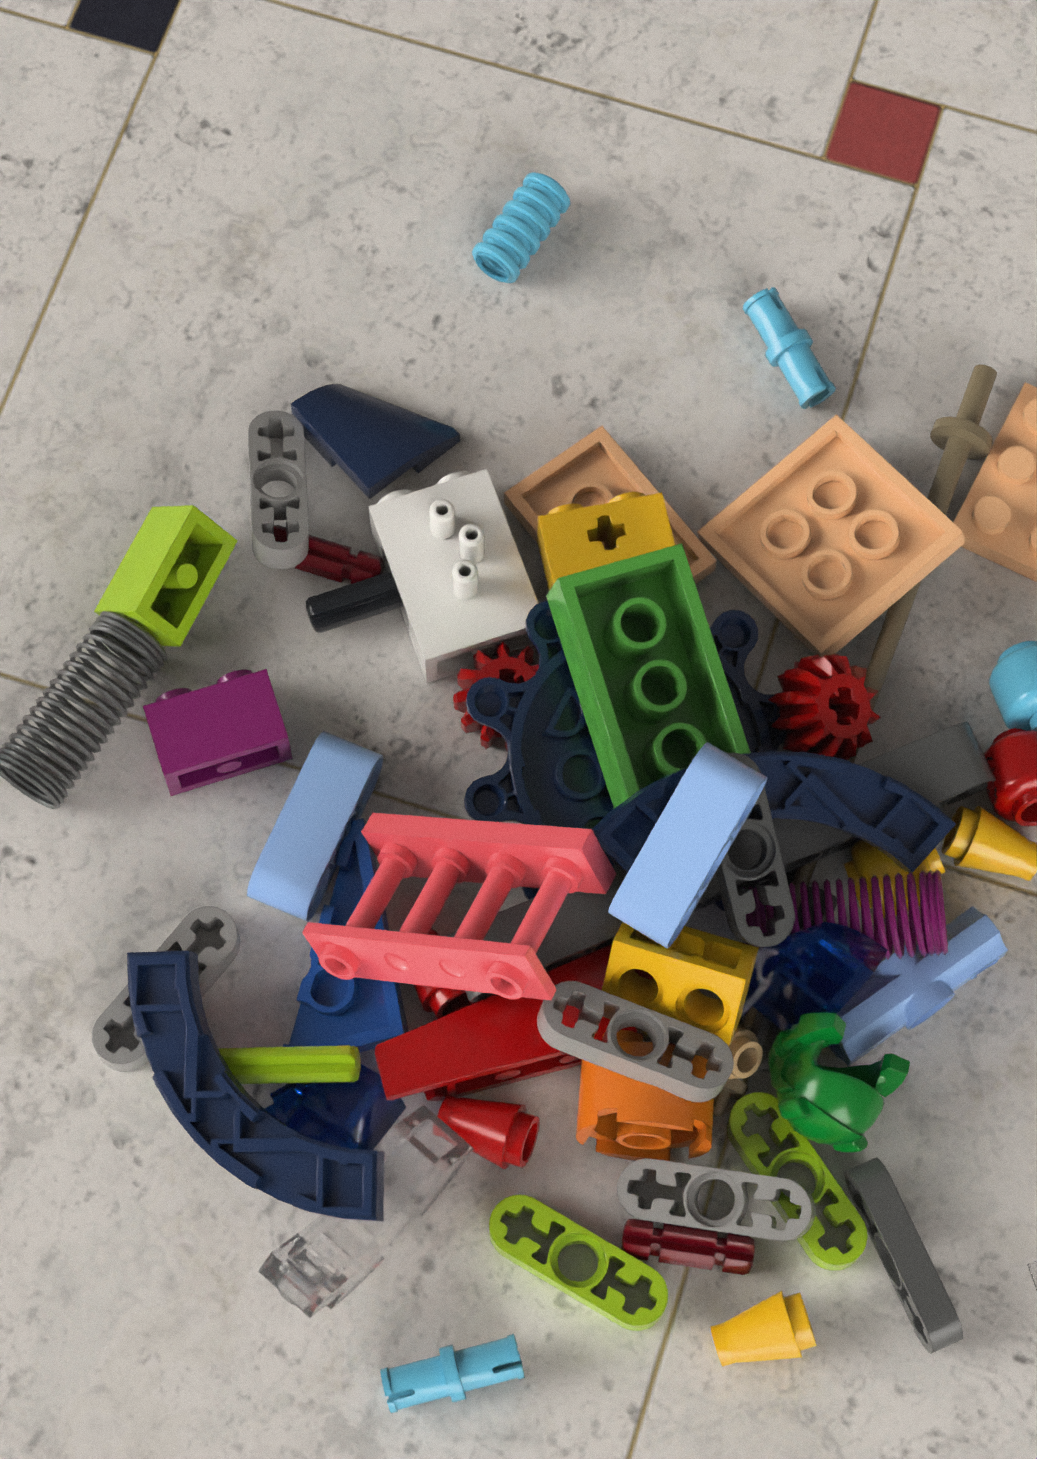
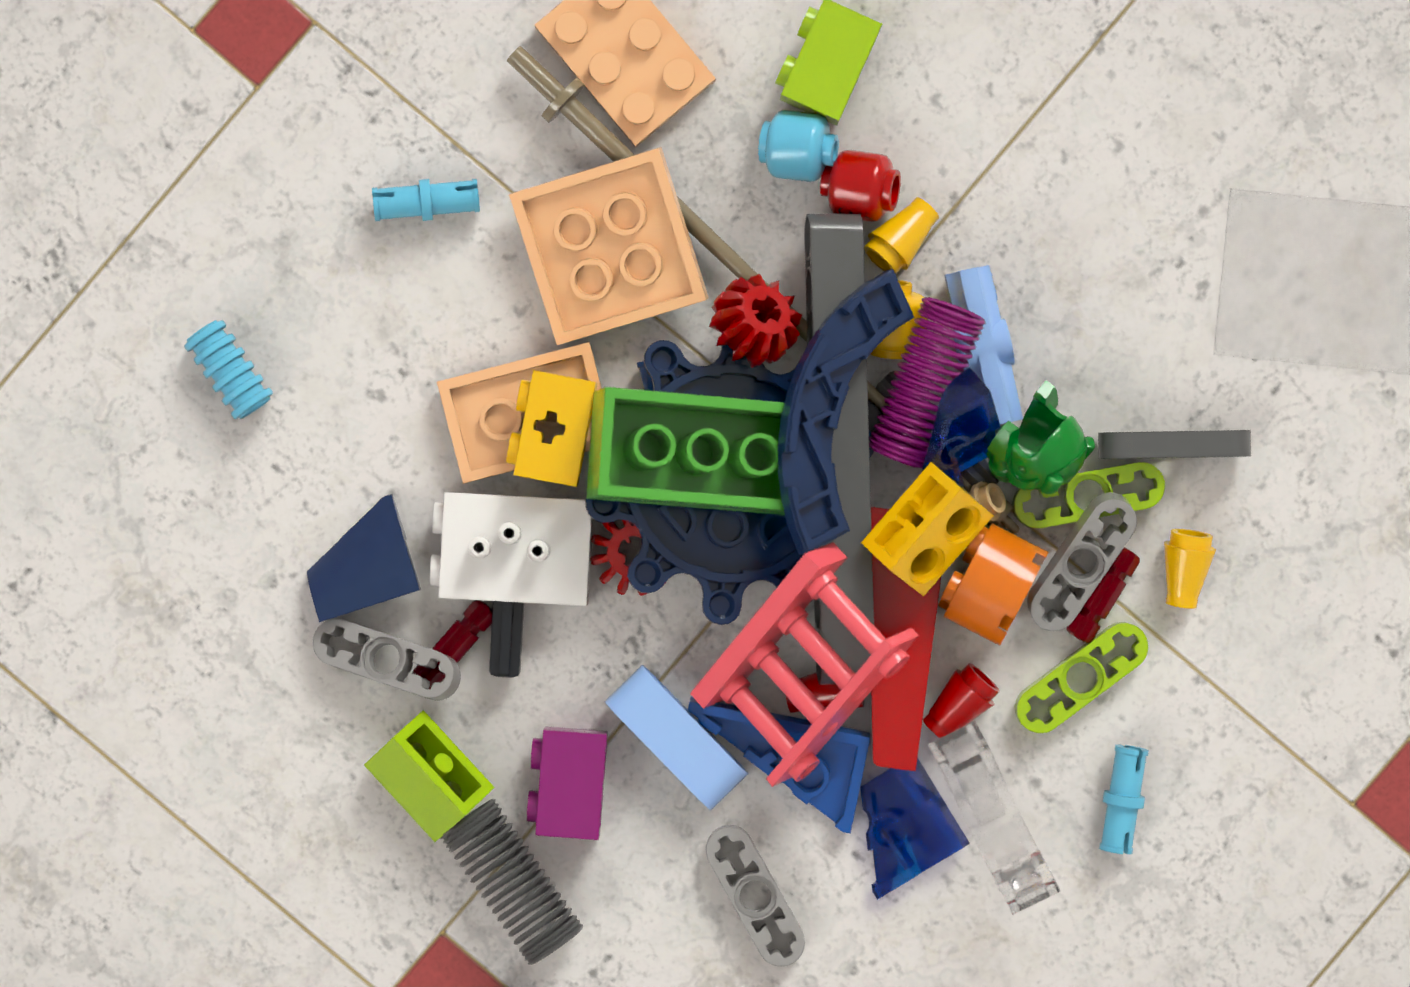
camera: 70 degrees left, 20 degrees up
(224, 1115) = (874, 893): dark blue tile -> none
(293, 1064) = (848, 848): lime axle -> none
(661, 1029) = (1001, 562): light grey beam -> none
(687, 845) = (851, 490): light blue beam -> none
(775, 894) = (824, 453): dark grey beam -> none

